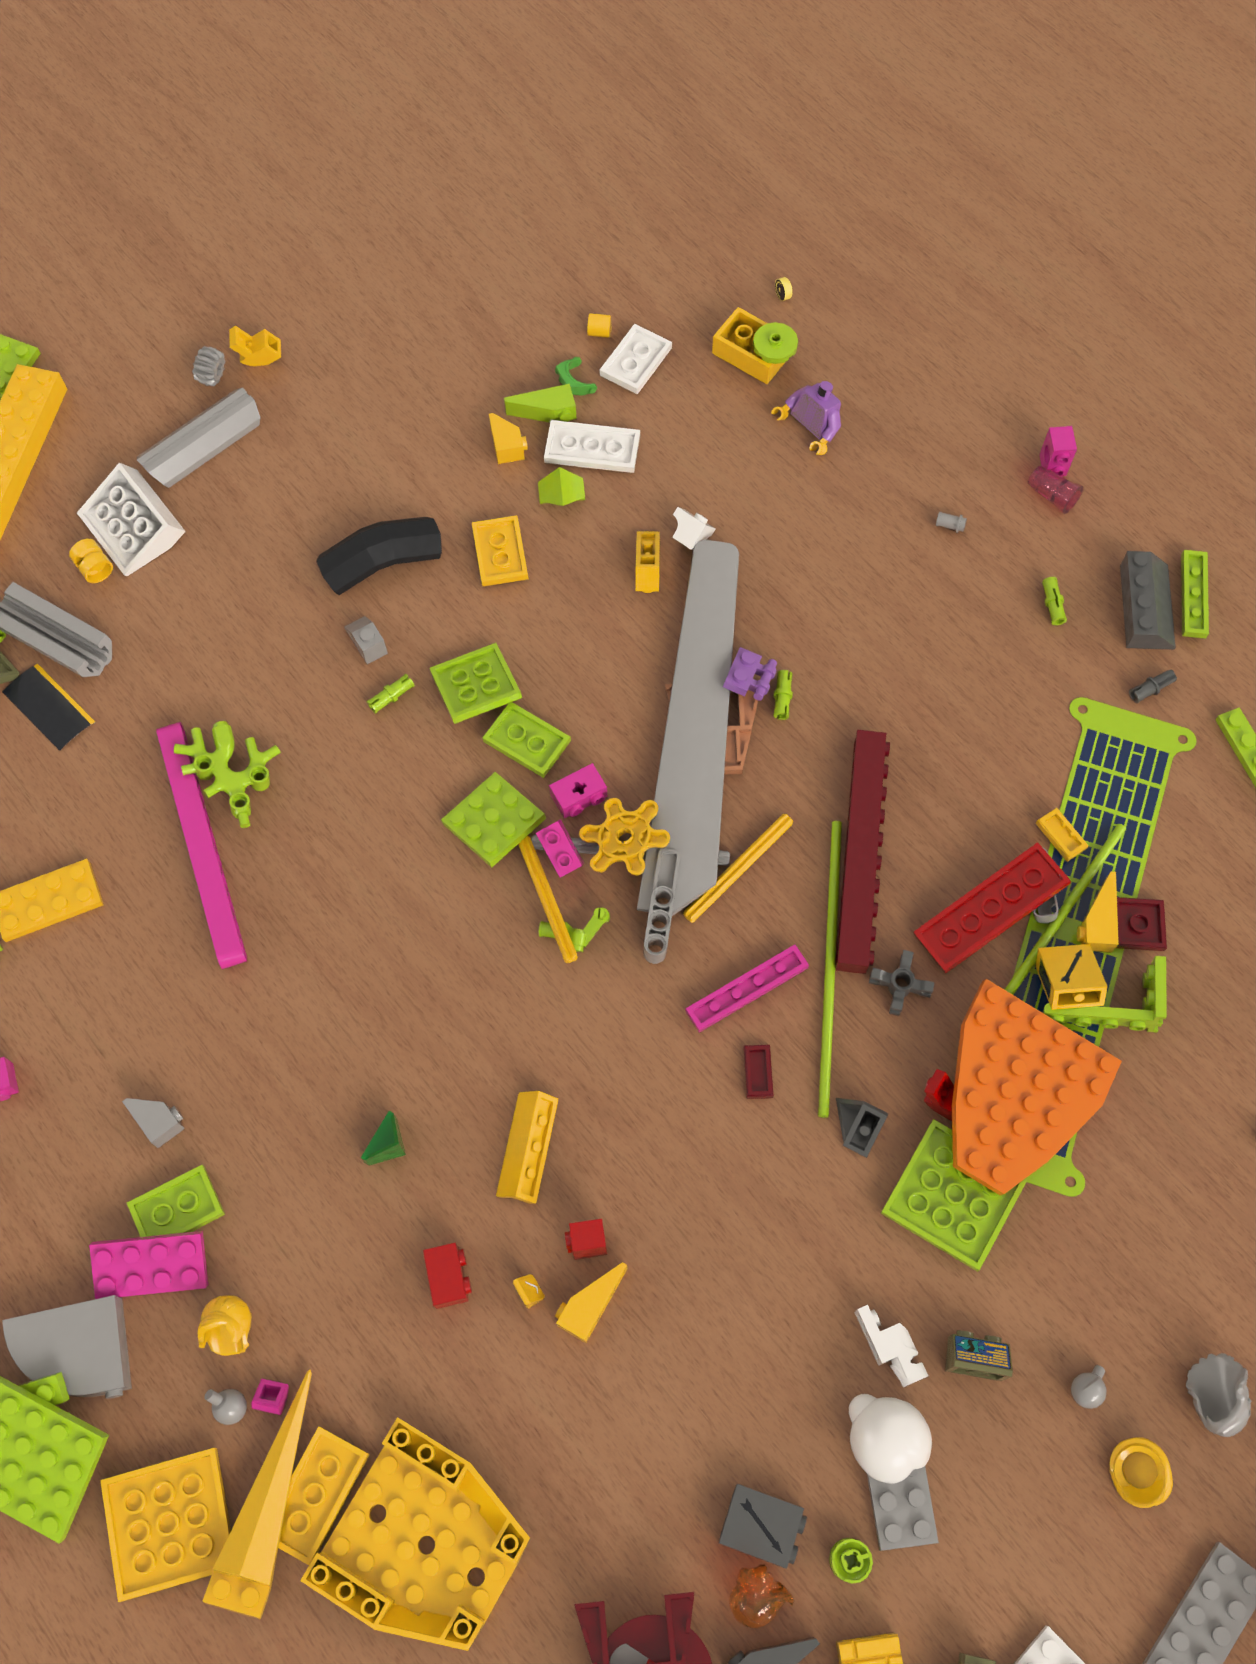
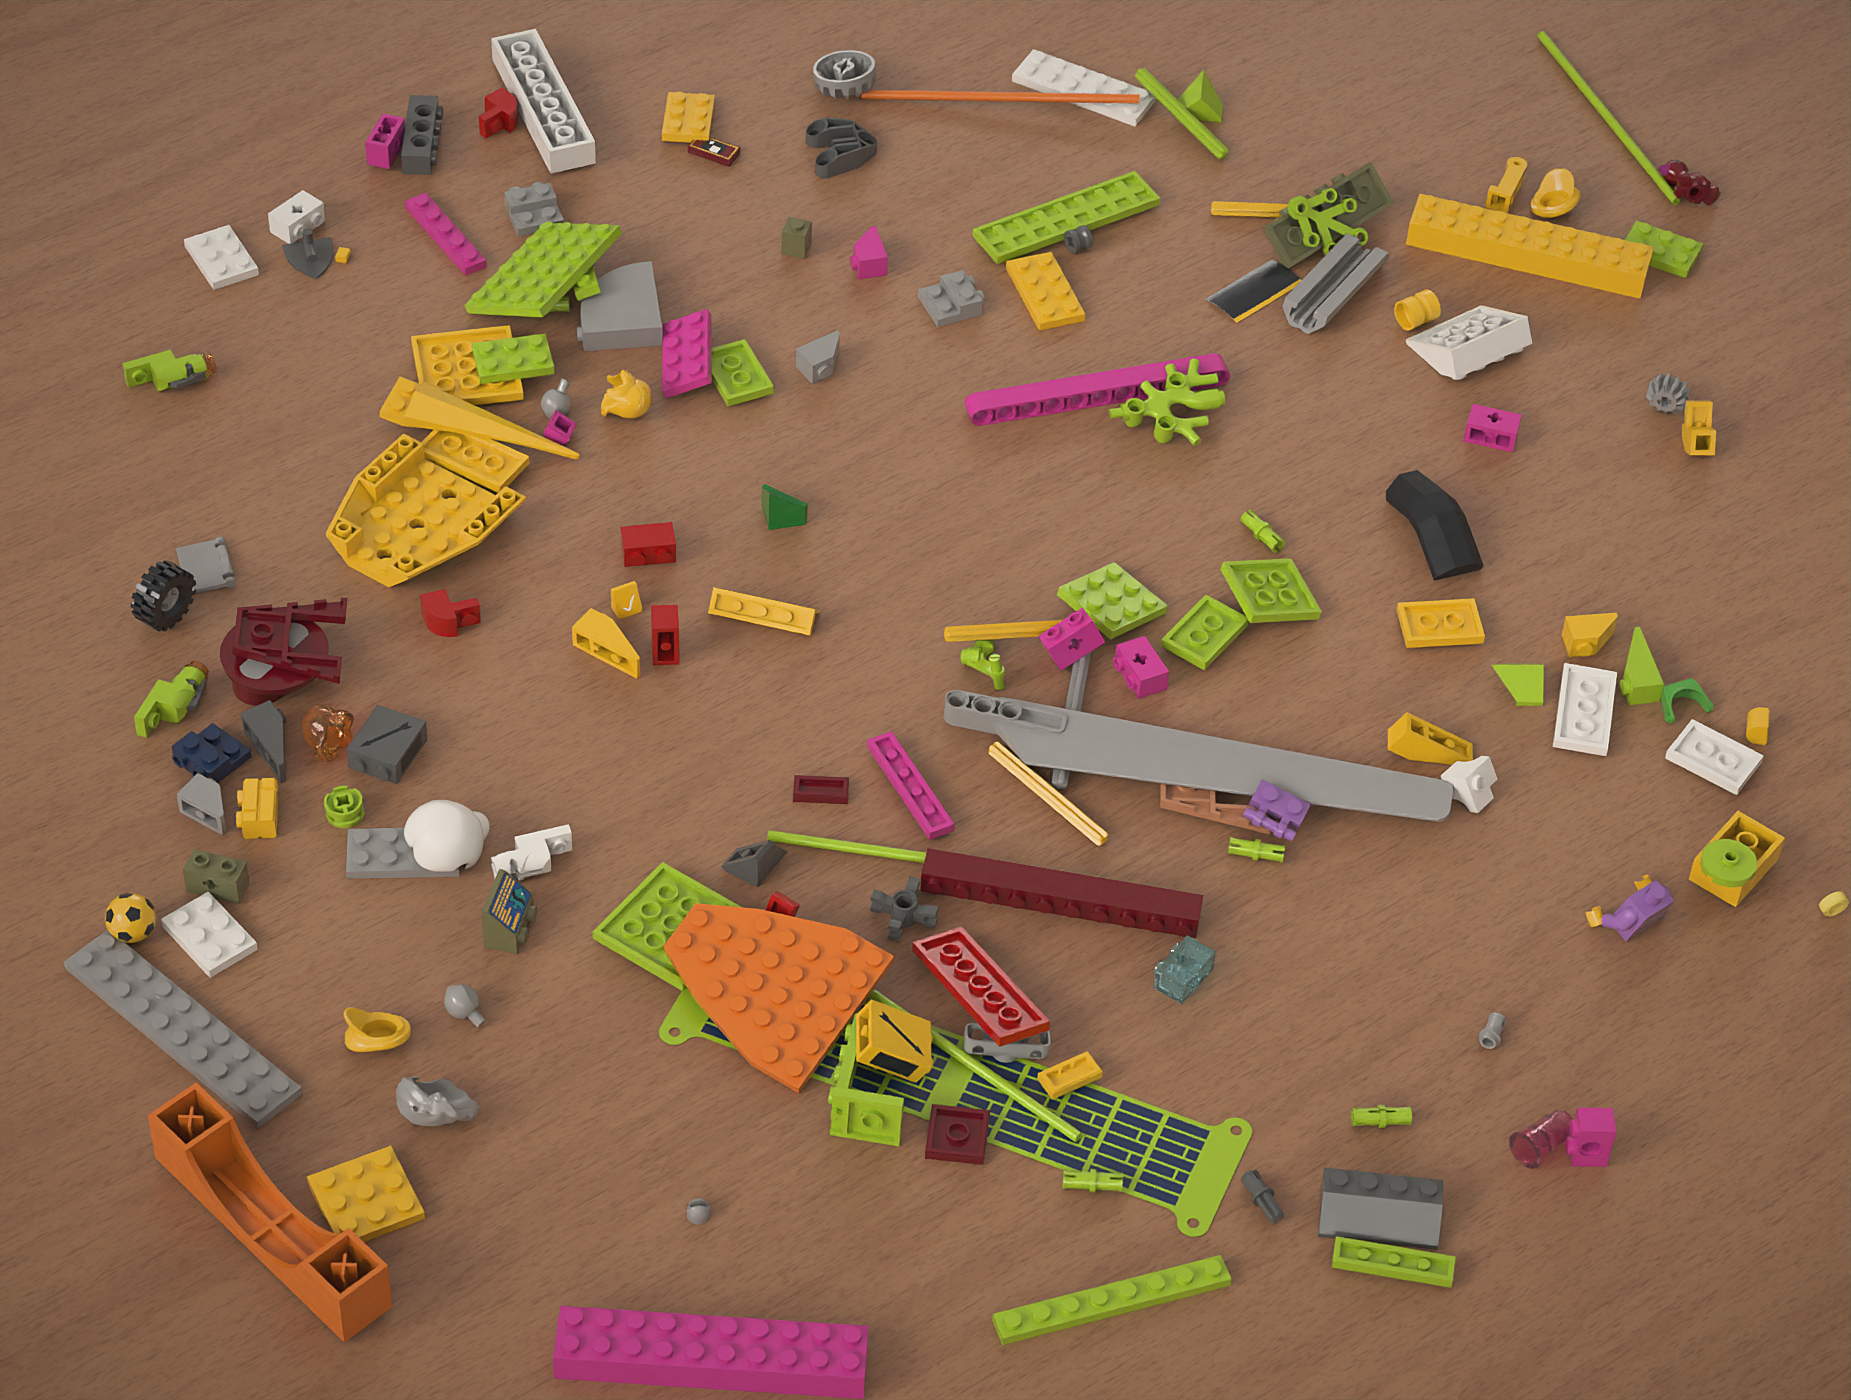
camera: 90 degrees right, 20 degrees down
(59, 991) = (952, 299): none -> light grey plate
(162, 1467) = (512, 358): none -> lime plate
(201, 438) = (1574, 391): light grey piece -> none
(250, 504) = (1492, 427): none -> dark pink brick
(367, 639) = (1325, 512): light grey slope -> none
(567, 1494) = (446, 617): none -> red brick
(619, 823) = (1094, 691): yellow plate -> none
(943, 747) = (1183, 969): none -> clear light blue brick
(1101, 921) = (961, 1088): yellow slope -> none
(1166, 813) = (1092, 1180): none -> lime pin

